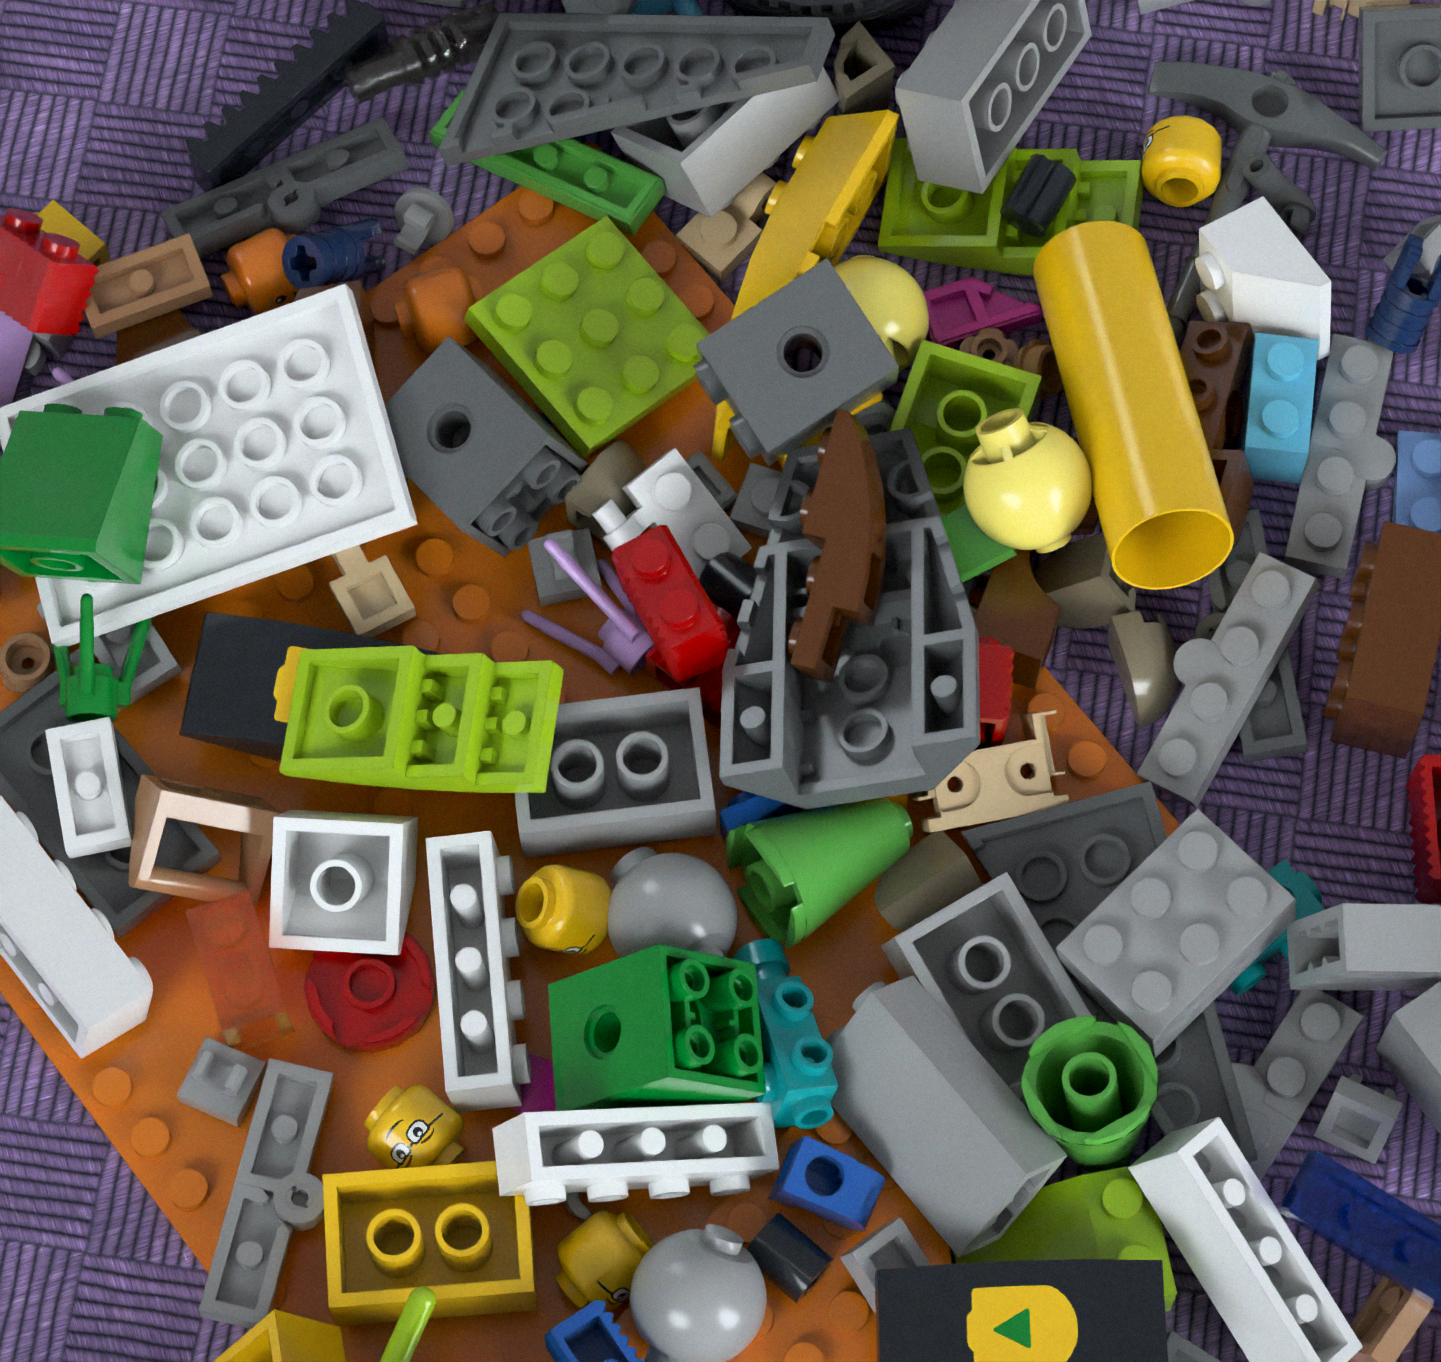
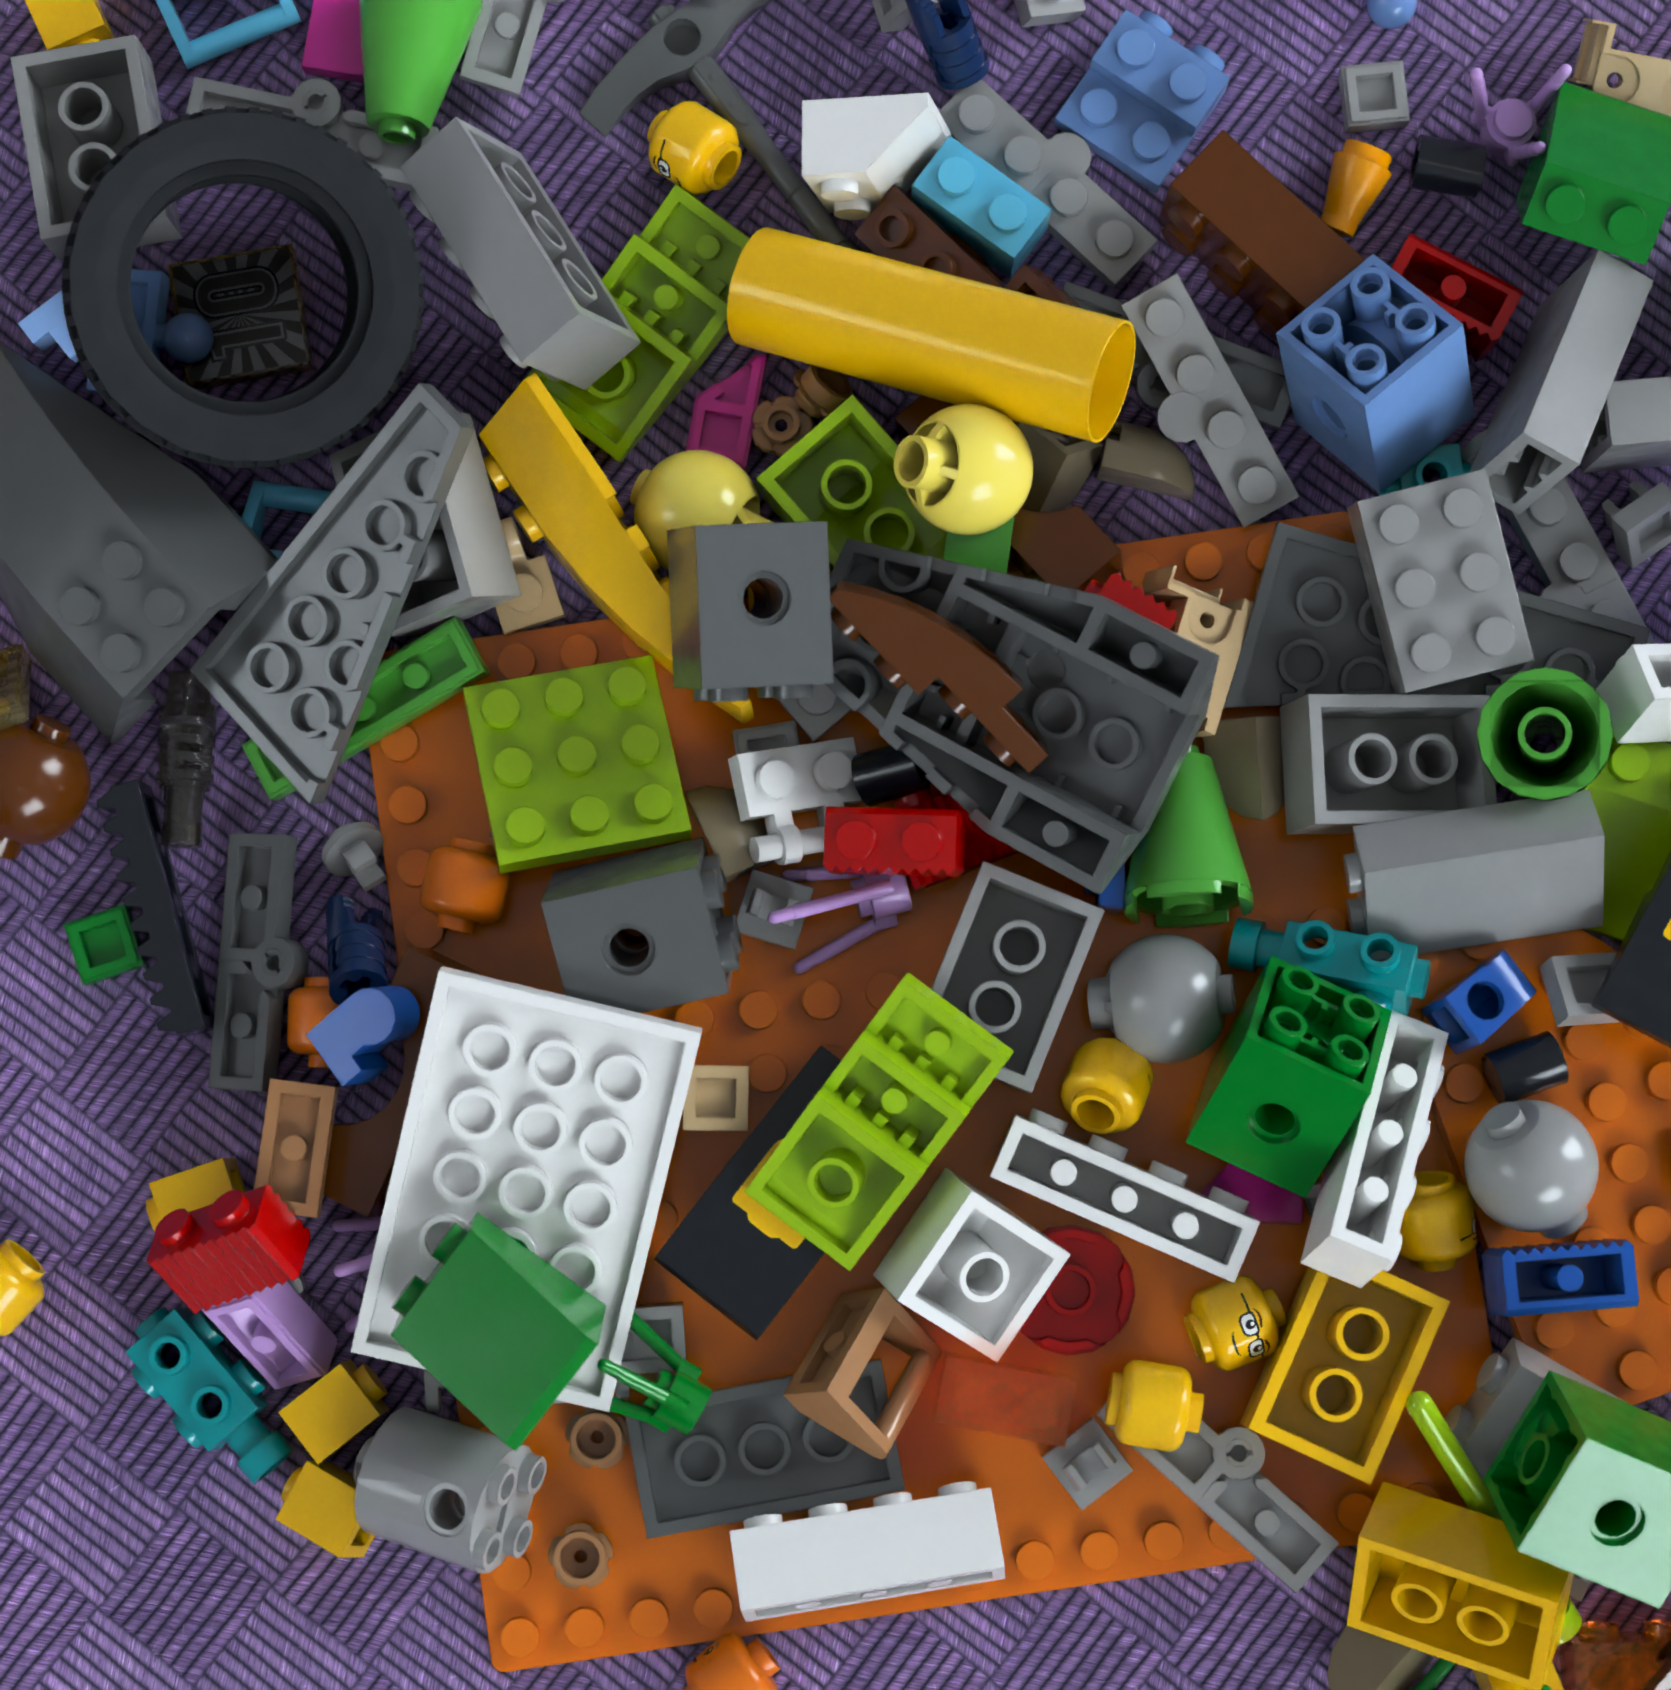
camera: 60 degrees left, 15 degrees up
(89, 787) = (765, 1447): white plate -> none
(230, 73) = (104, 945): none -> green tile
(263, 277) = (361, 1028): none -> blue leg
(299, 1088) = (1153, 1405): none -> yellow head
(862, 73) = (454, 376): dark tan brick -> none
(1038, 196) = (667, 294): black piece -> none
(1283, 195) = (776, 81): dark grey arm -> none
(1336, 788) = (1377, 372): none -> medium blue brick

